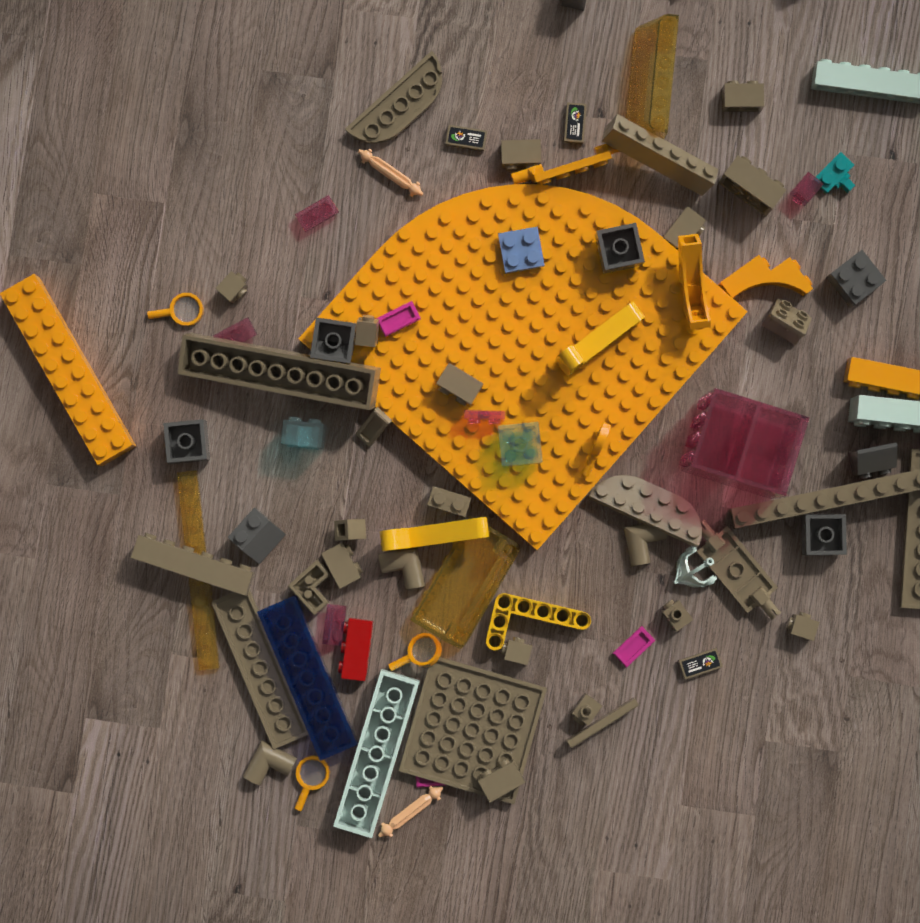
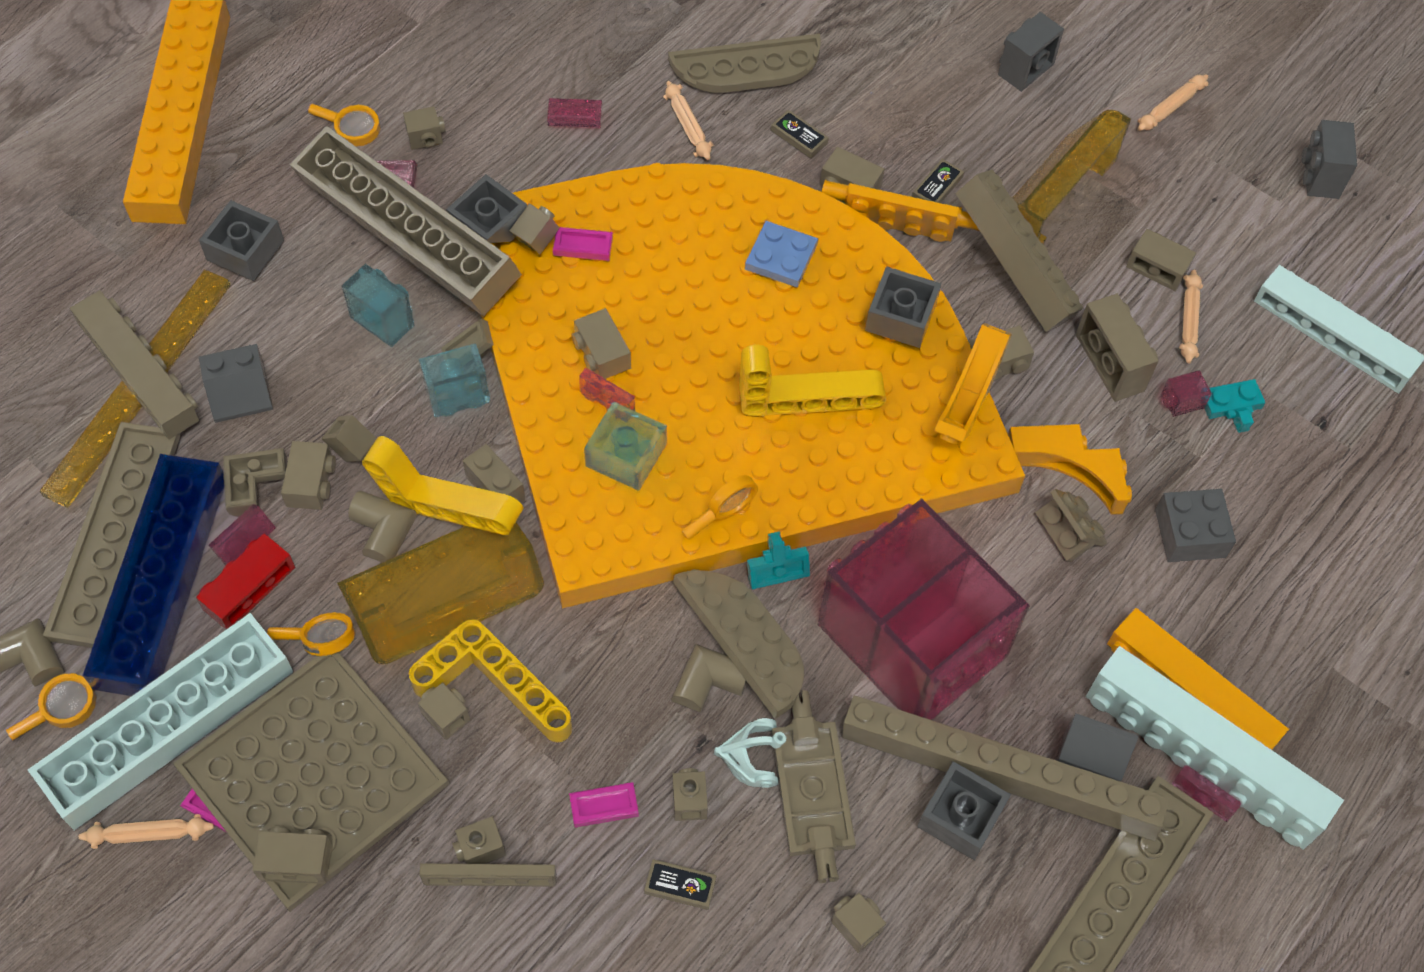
camera: 30 degrees right, 25 degrees down
(385, 456) = (455, 380): none -> clear light blue brick
(640, 452) = (778, 564): none -> teal hinge
(780, 127) = (1191, 316): none -> light nougat wheel

